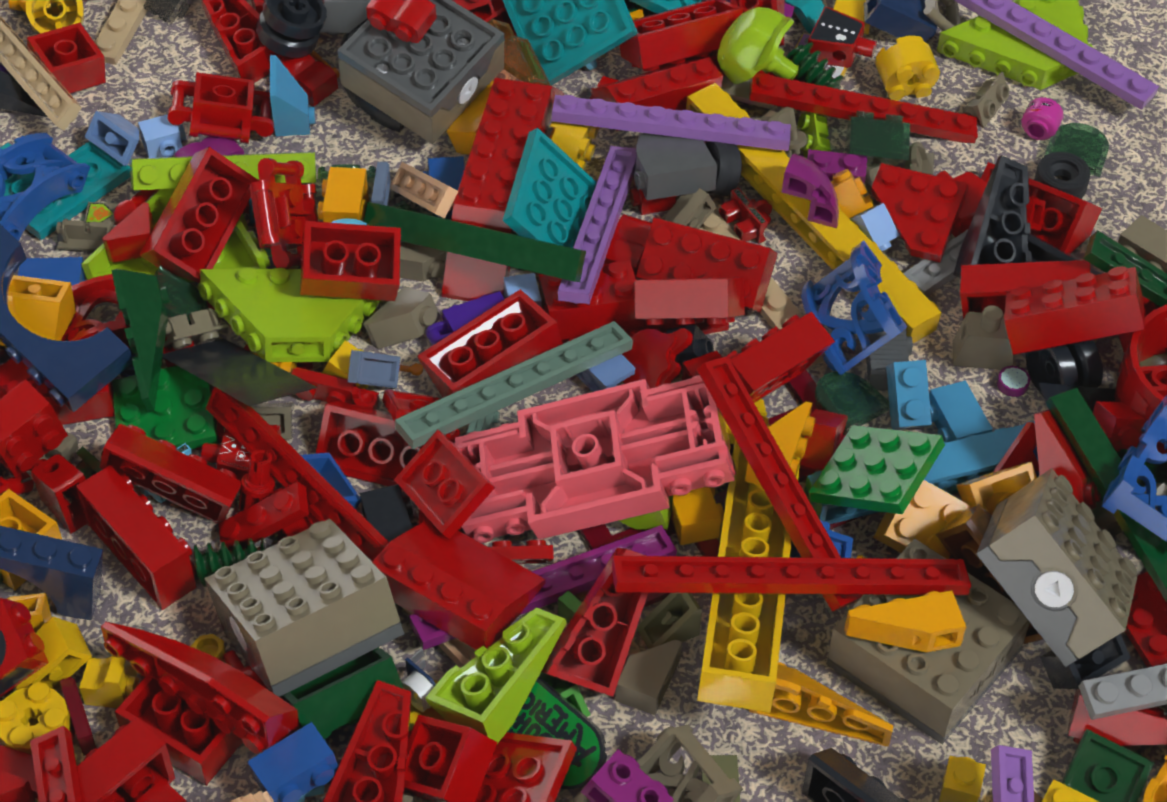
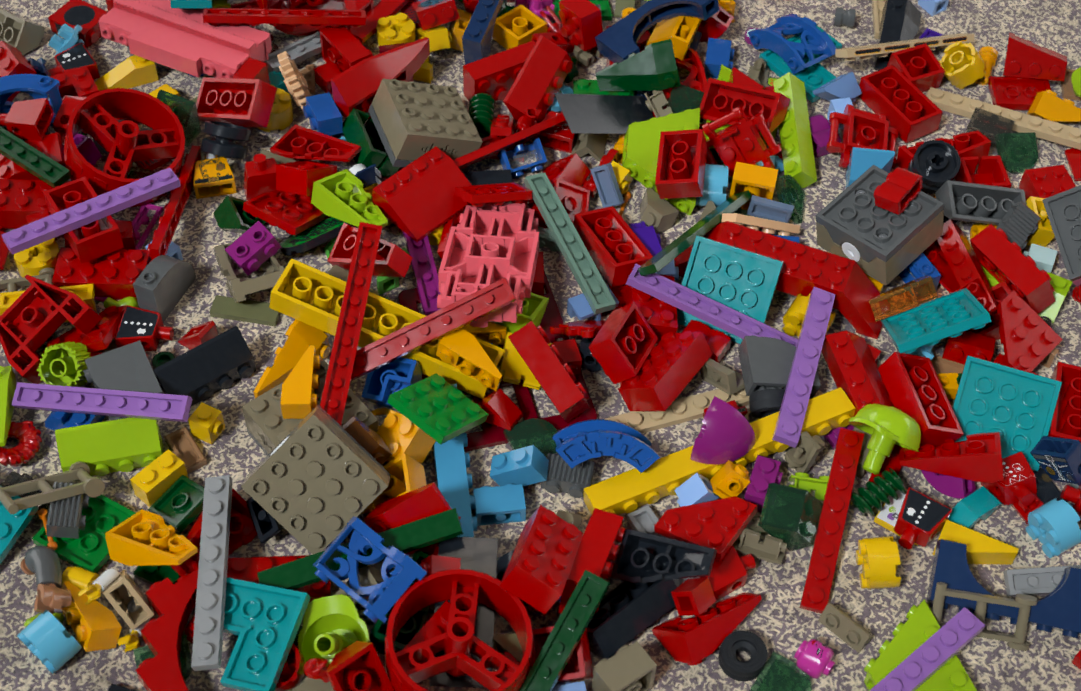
camera: 100 degrees right, 0 degrees up
(138, 73) = (902, 103): none -> red brick

